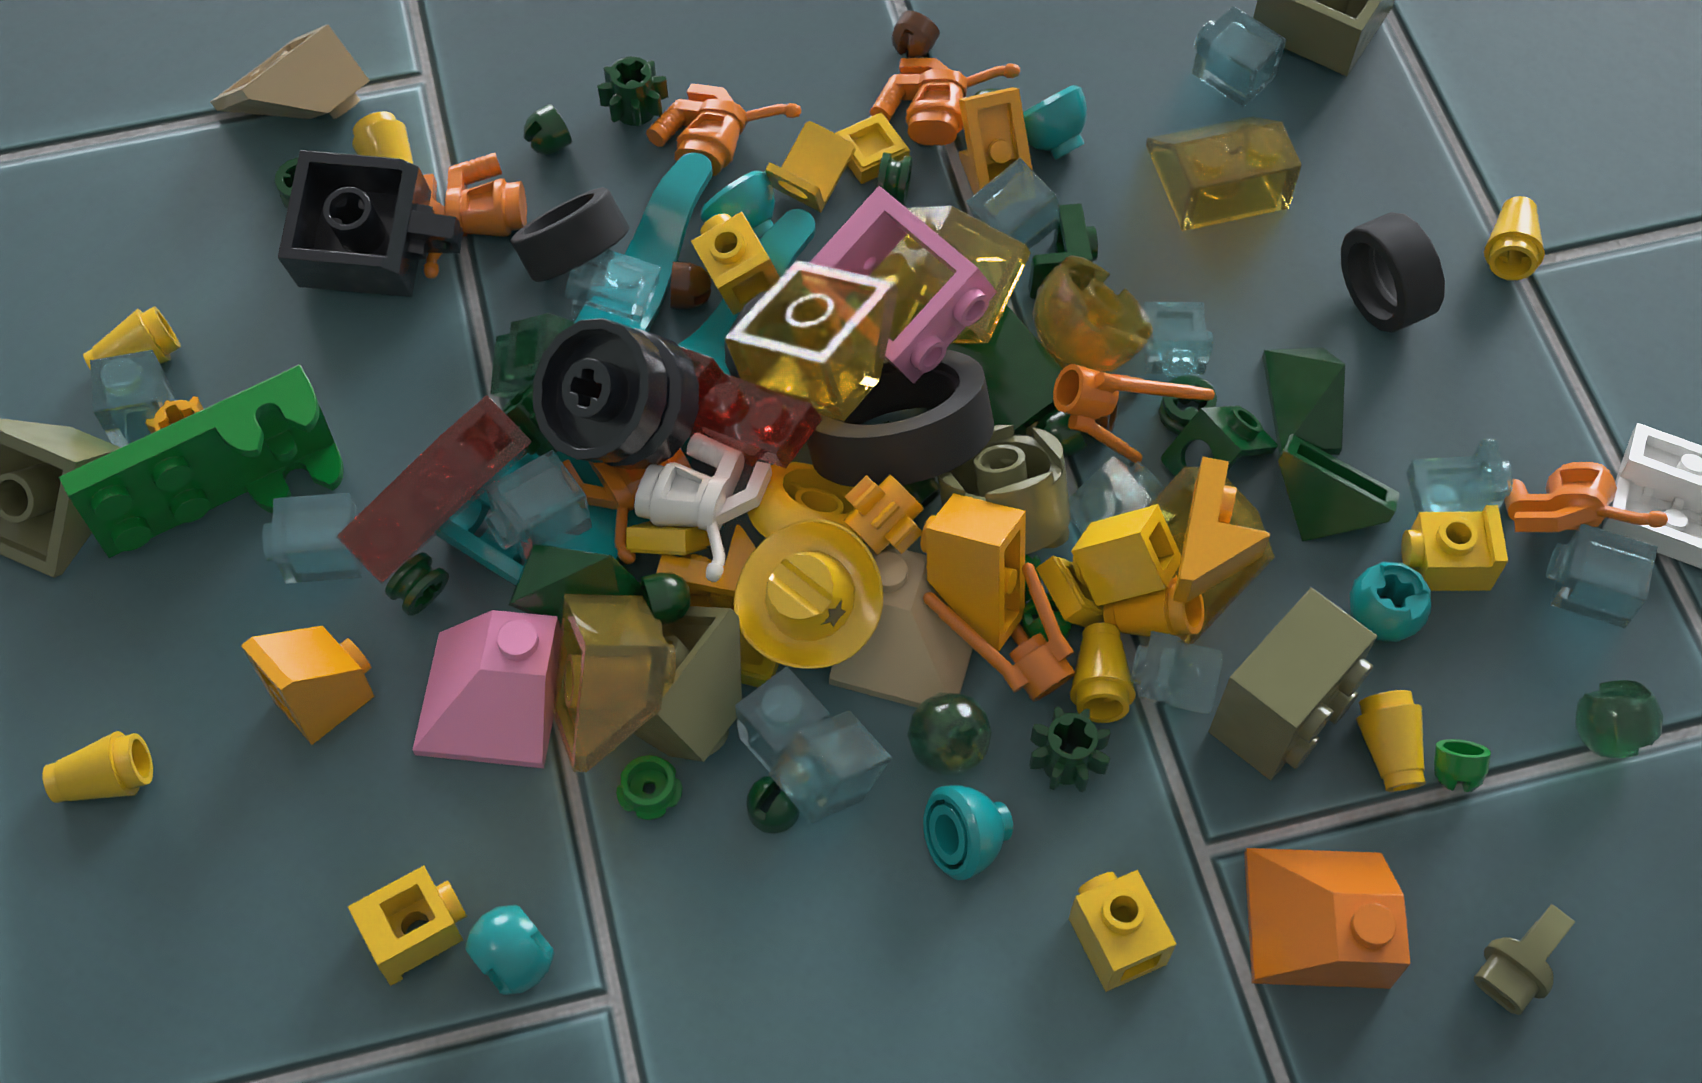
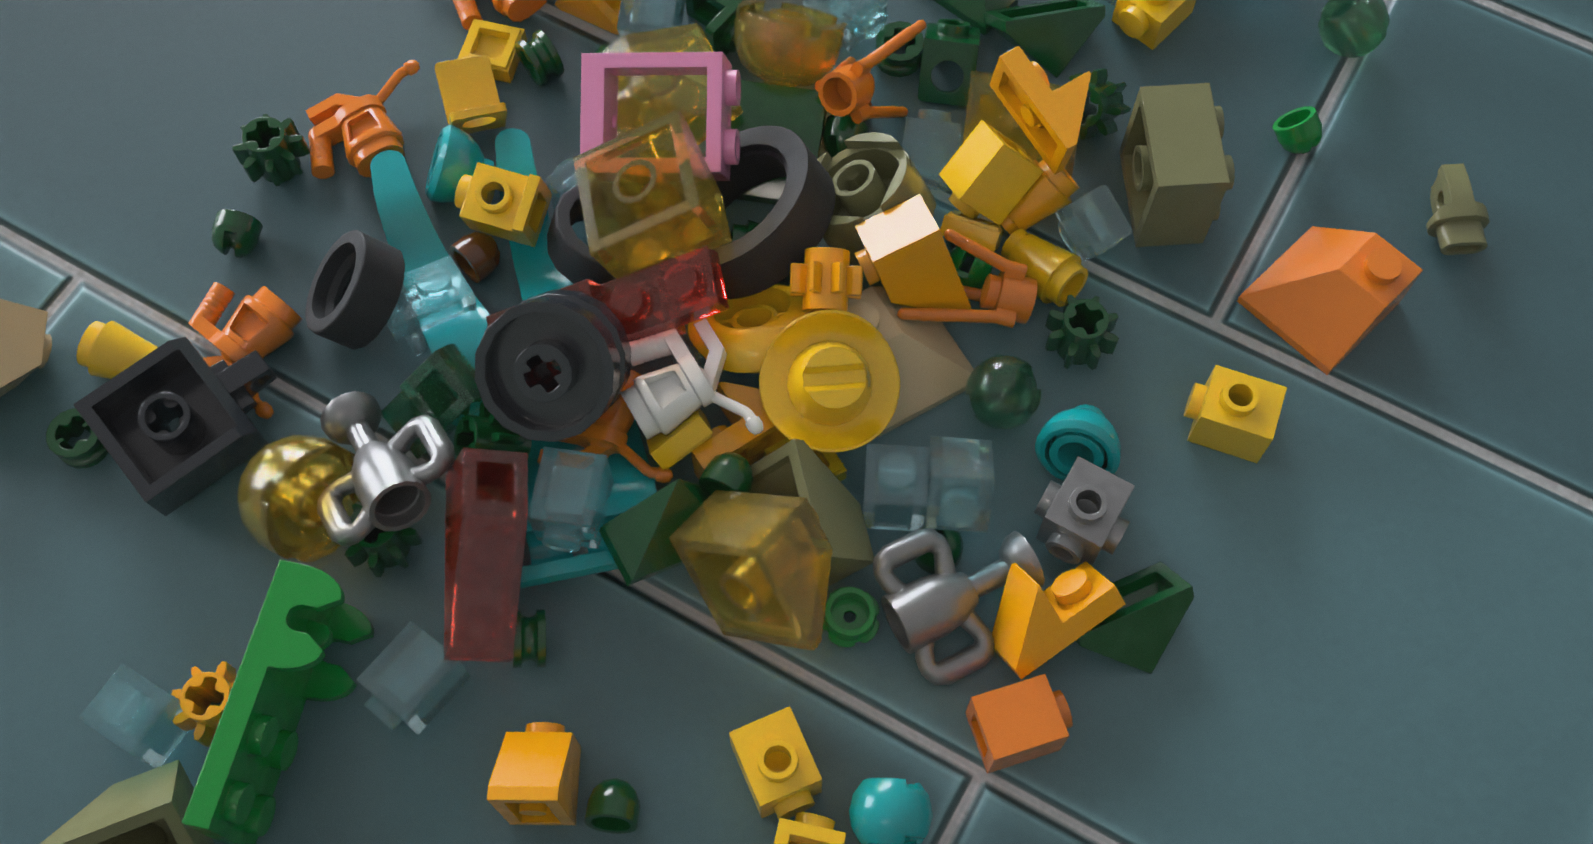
camera: 45 degrees left, 5 degrees up
(135, 334) = (80, 676): yellow cone -> none
(342, 753) = (613, 807): none -> dark green hinge
(381, 347) = (282, 493): none -> clear yellow cylinder
(403, 421) = (387, 552): none -> dark green gear
(436, 376) = (382, 474): none -> flat silver piece
(474, 834) = (777, 764): none -> yellow brick
(492, 690) = (667, 659): bright pink slope -> none
(673, 982) = (1018, 722): none -> orange brick
(725, 842) = (945, 600): none -> flat silver piece
(774, 930) = (1040, 623): none -> light orange slope
(849, 996) = (1144, 626): none -> dark green slope
(899, 881) = (1083, 513): none -> flat silver brick
(1290, 577) = (1109, 102): none -> dark green gear
(1394, 738) = (1254, 149): yellow cone -> none
(1401, 587) = (1158, 50): teal piece -> none

